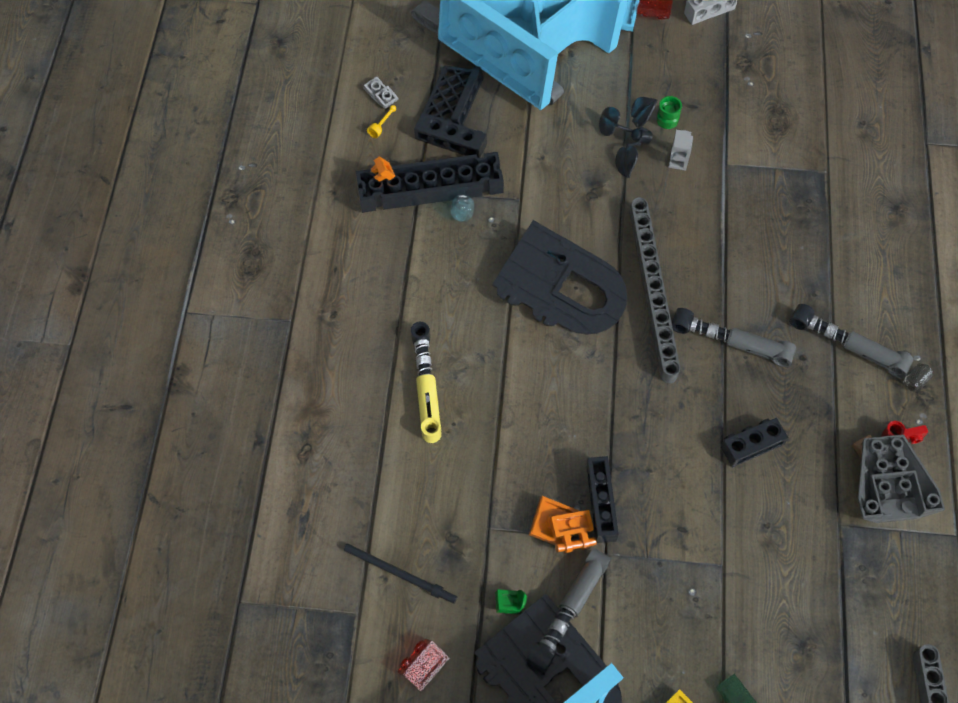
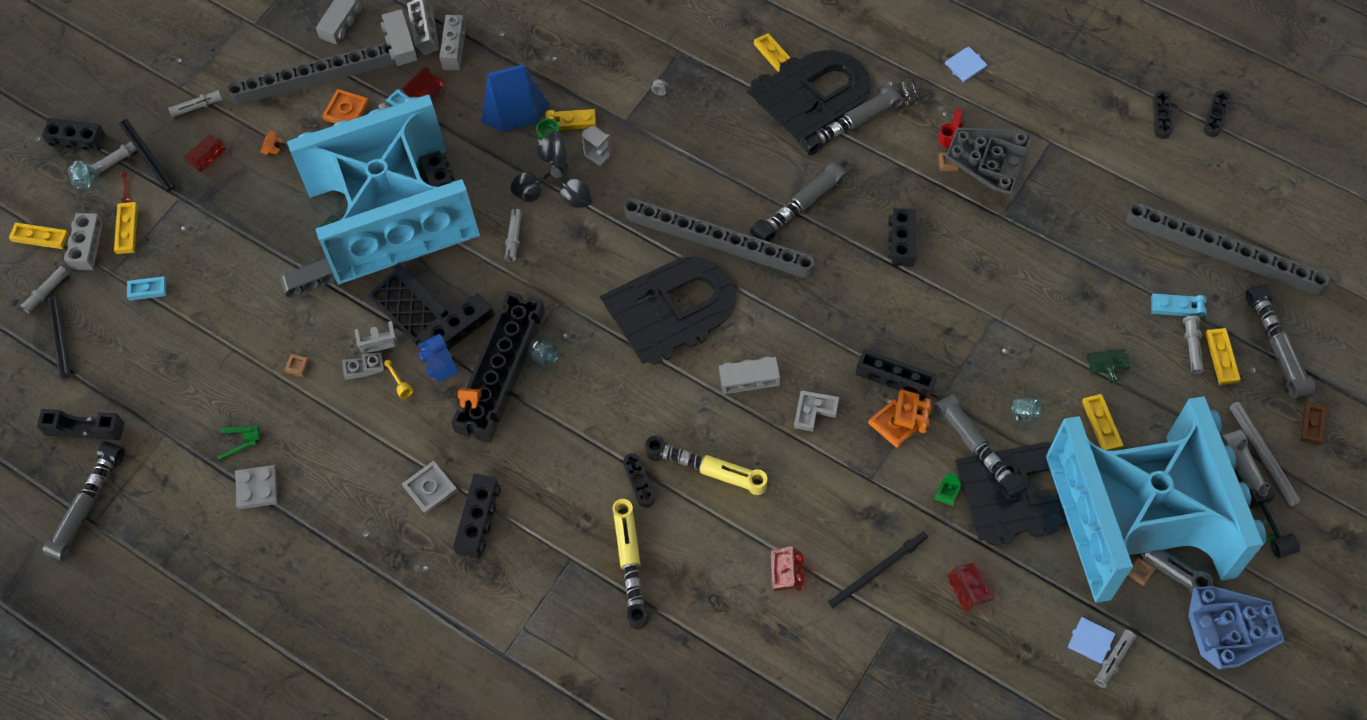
camera: 60 degrees left, 0 degrees up
(242, 78) = (256, 487): none -> light grey plate
(281, 229) = (479, 486): none -> black brick
(283, 51) = (249, 433): none -> green plant
(299, 189) = (429, 487): none -> light grey plate
(305, 364) = (629, 562): none -> piece
(358, 51) = (297, 365): none -> medium nougat tile
(360, 494) = (787, 569): none -> clear red bracket
(384, 345) = (638, 488): none -> black beam
(402, 88) = (377, 341): none -> light grey window
(410, 135) = (437, 357): none -> blue hinge
(529, 440) = (813, 404): none -> light grey plate
(532, 375) = (749, 375): none -> light grey brick
(556, 136) = (512, 241): none -> light grey pin
(577, 59) = (437, 172): none -> black brick
(636, 637) = (1026, 409): none -> clear light blue head
(680, 67) = (512, 99): none -> blue wedge
(698, 124) = (573, 119): none -> yellow plate
(775, 171) = (659, 87): none -> light grey bush
(841, 277) = (791, 95): none -> black door
(875, 247) = (771, 50): none -> yellow plate

